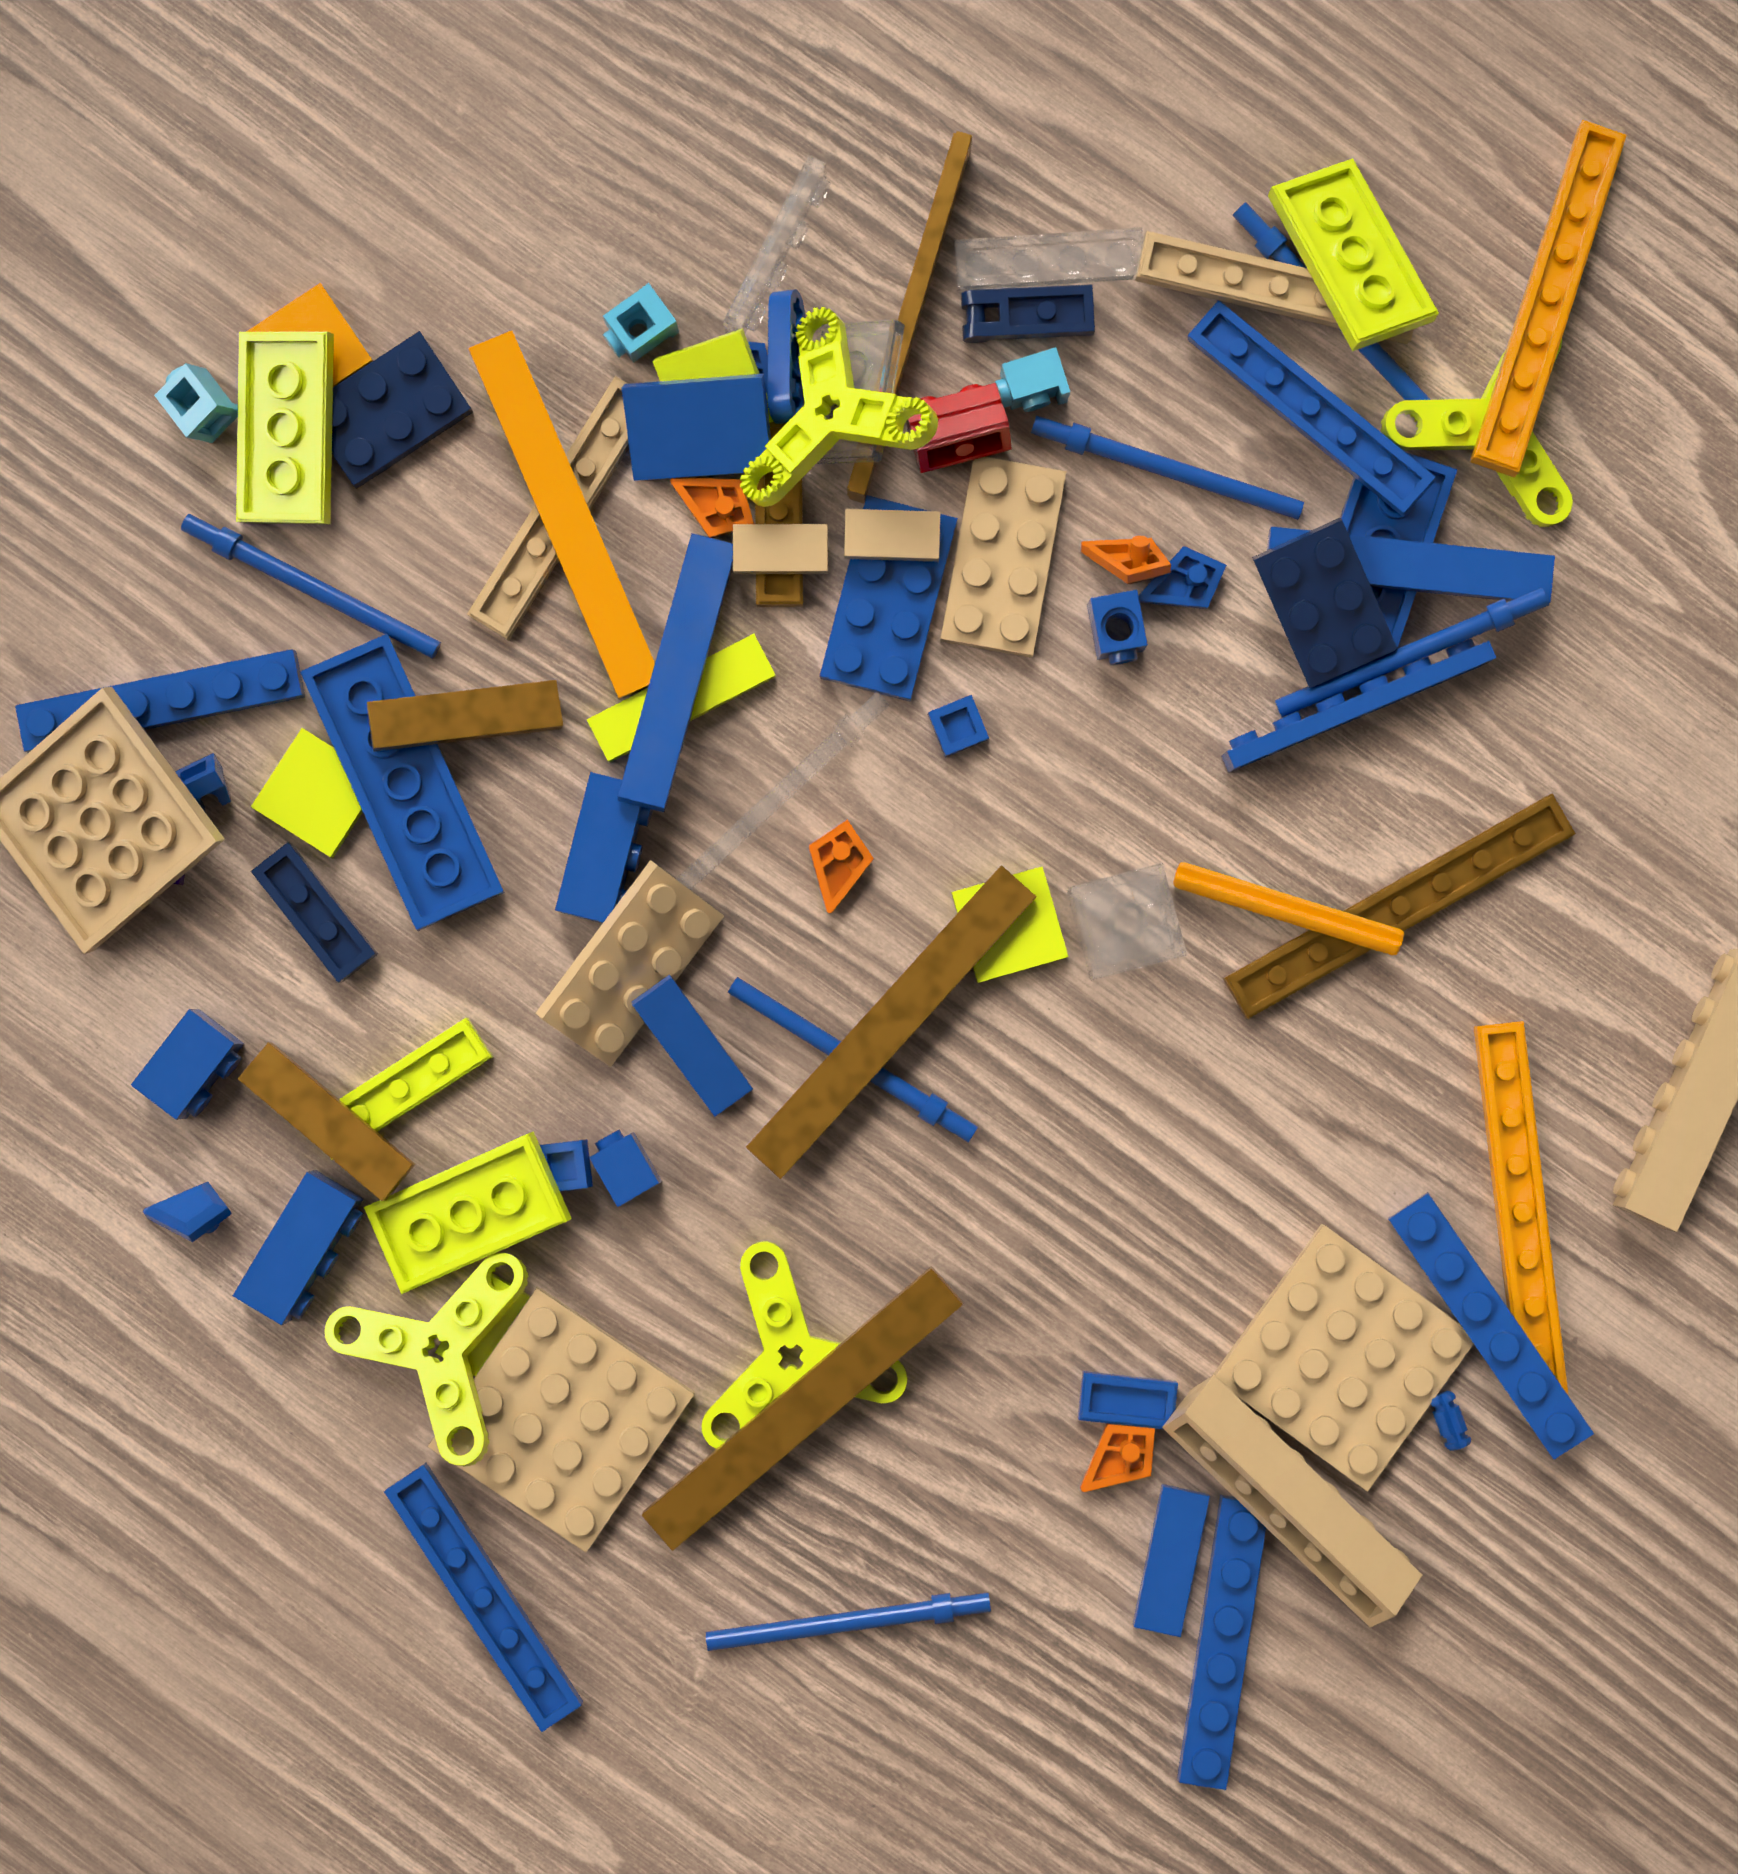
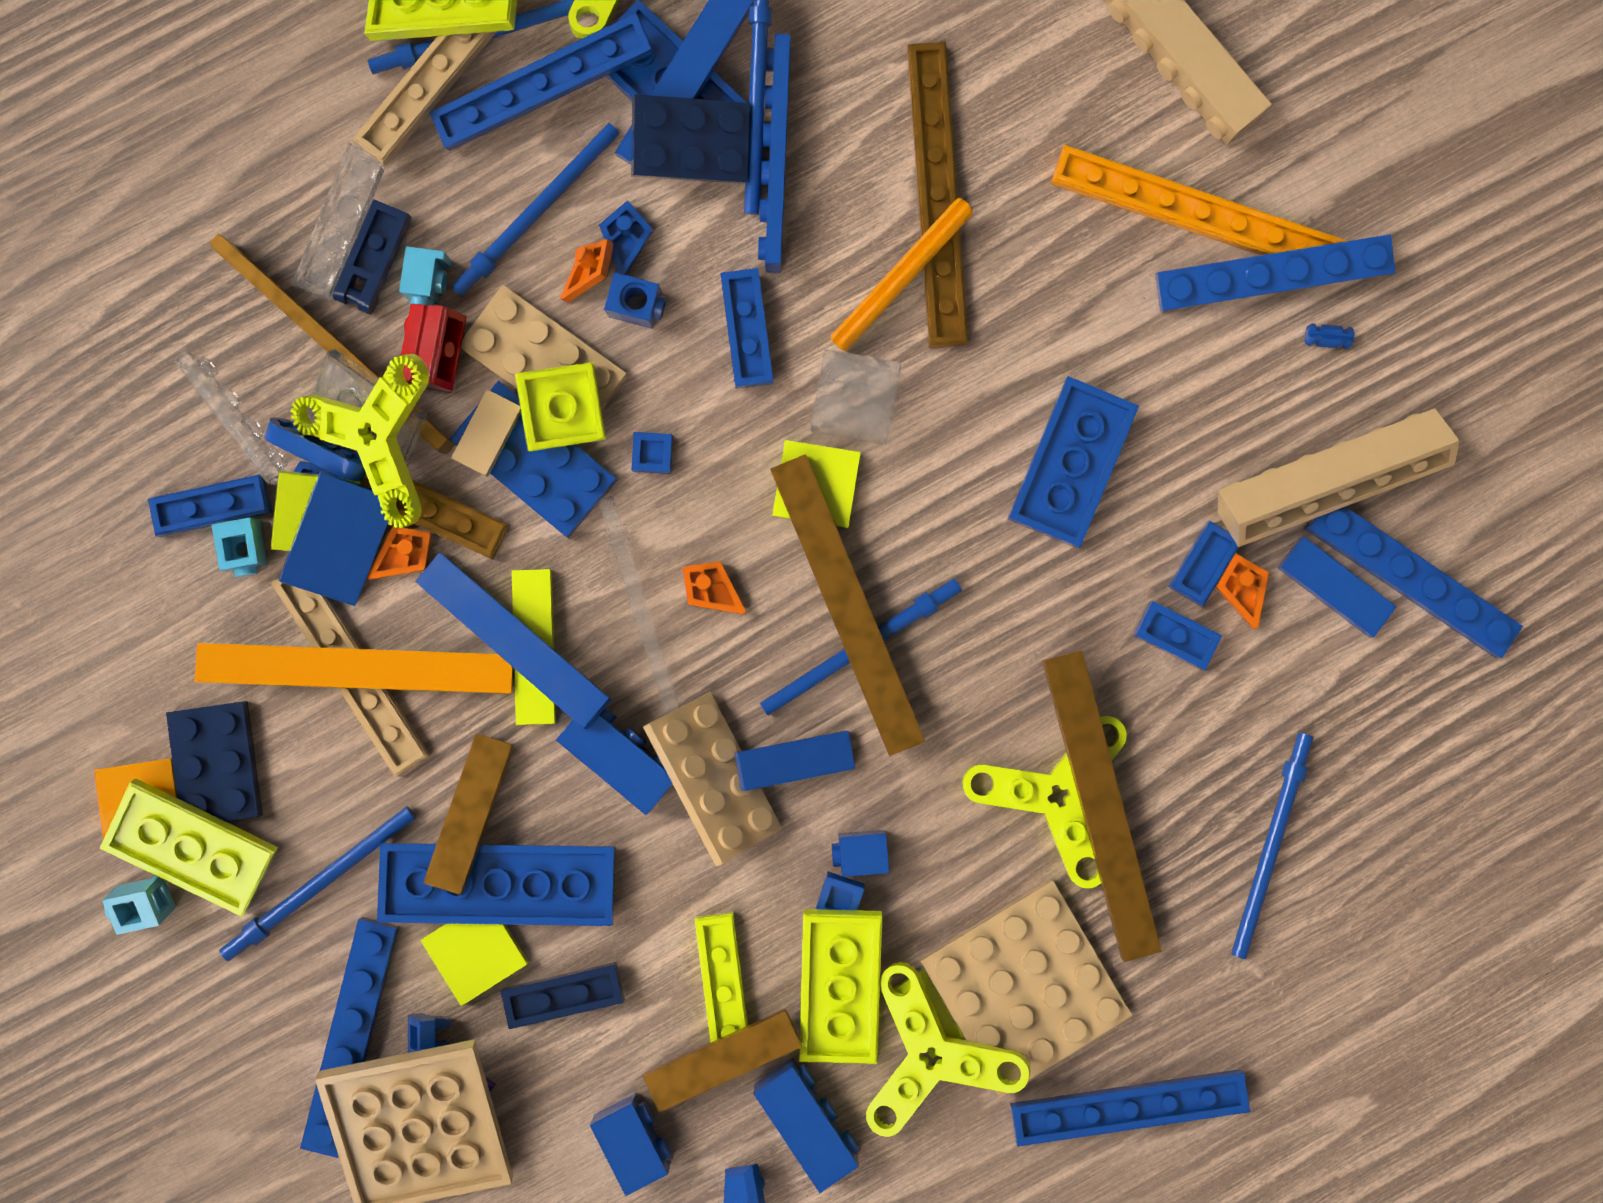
camera: 60 degrees left, 0 degrees up
(668, 267) = (209, 505): none -> blue tile
(780, 548) = (458, 521): tan tile -> none
(959, 601) = (560, 406): none -> neon yellow tile
(1031, 1406) = (1177, 635): none -> blue plate
(1146, 765) = (746, 328): none -> blue plate
(1170, 1198) = (1073, 462): none -> blue plate
(1344, 1357) = (1247, 390): tan plate -> none

